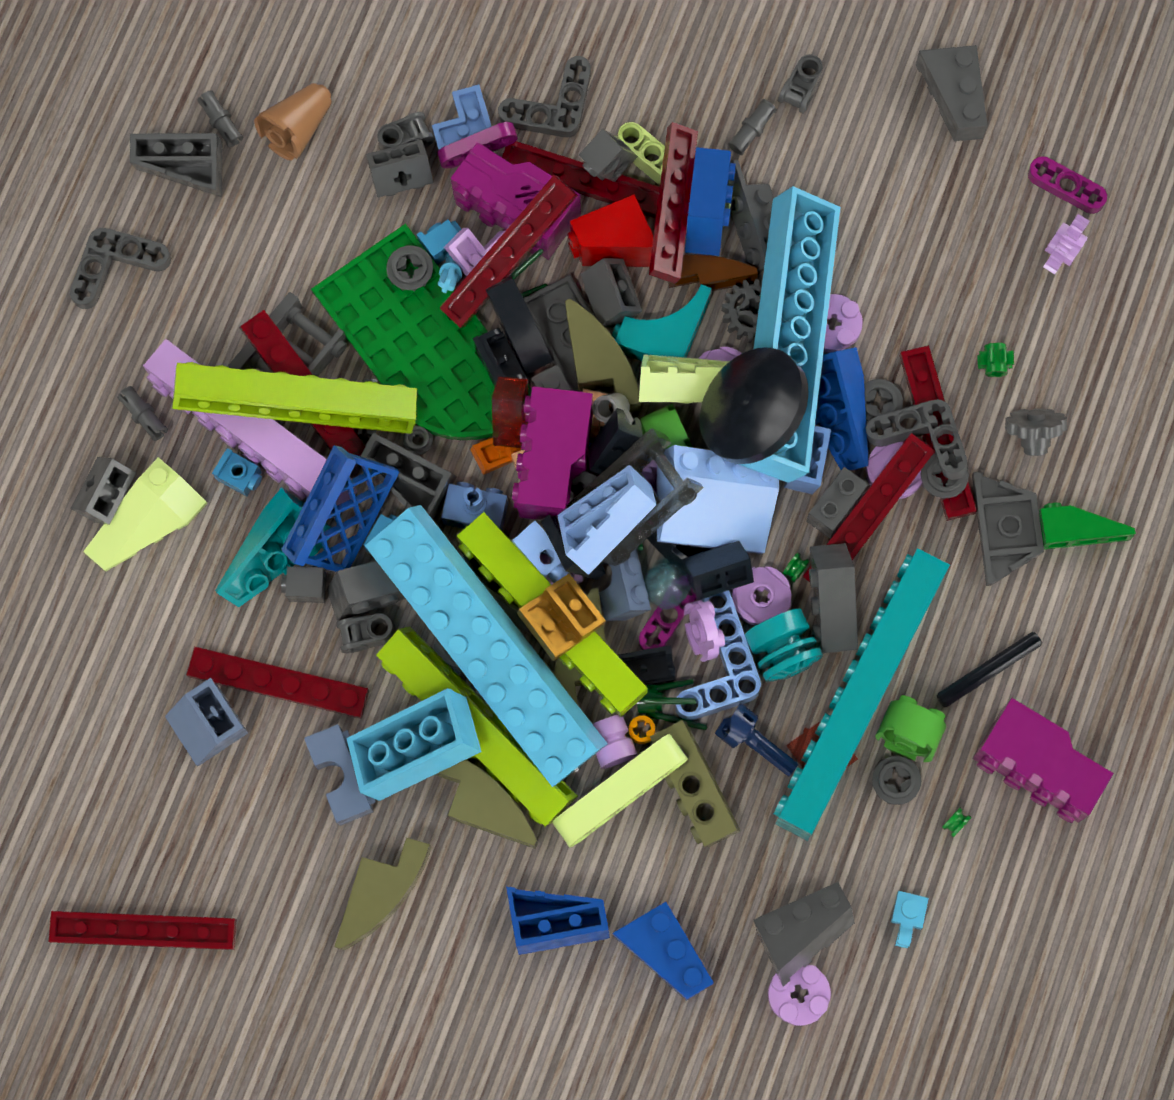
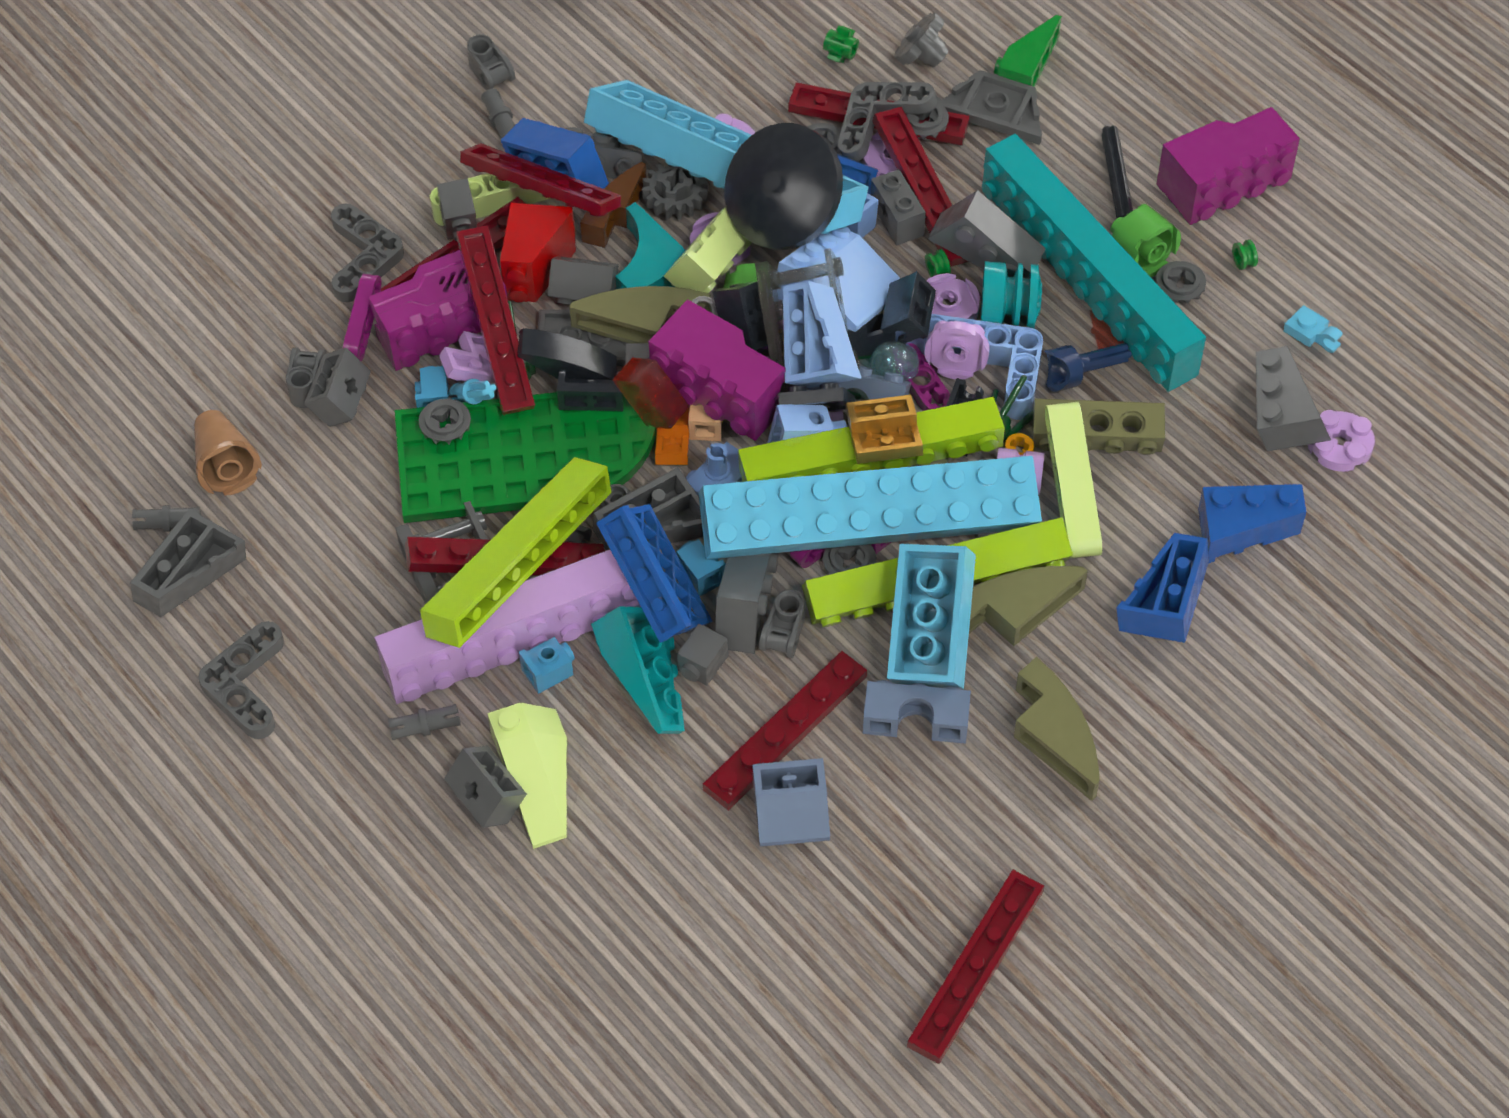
camera: 65 degrees left, 20 degrees down
(471, 114) = (328, 316): medium blue plate -> none

